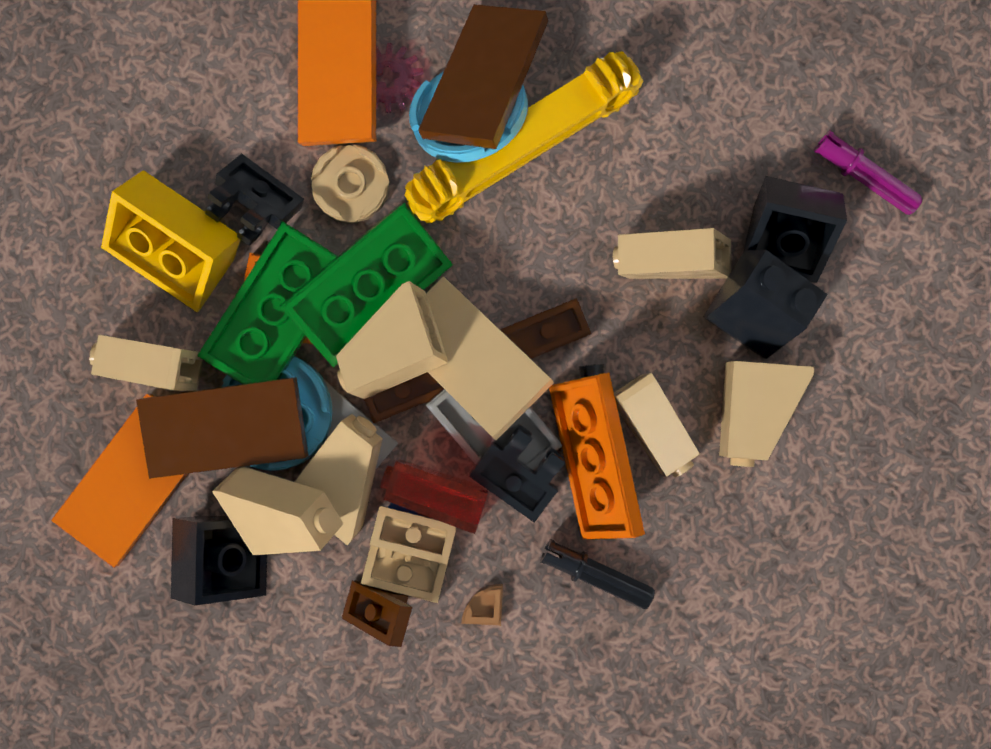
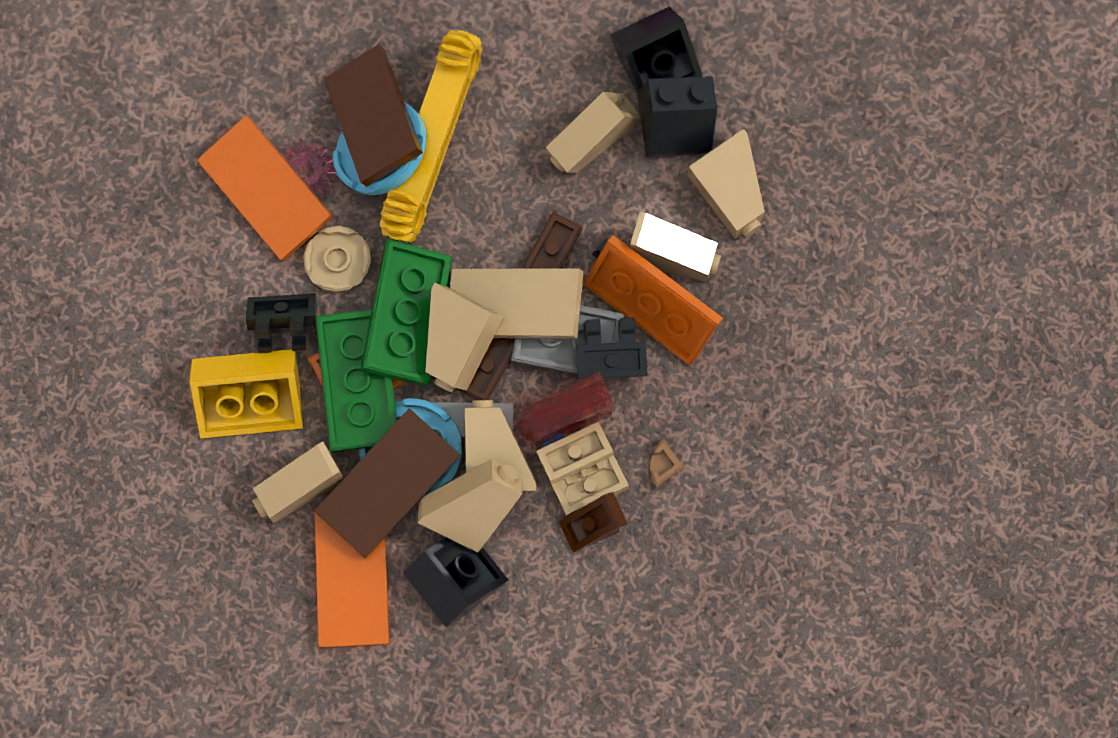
camera: 40 degrees left, 10 degrees down
(597, 575) = (719, 380): black axle -> none

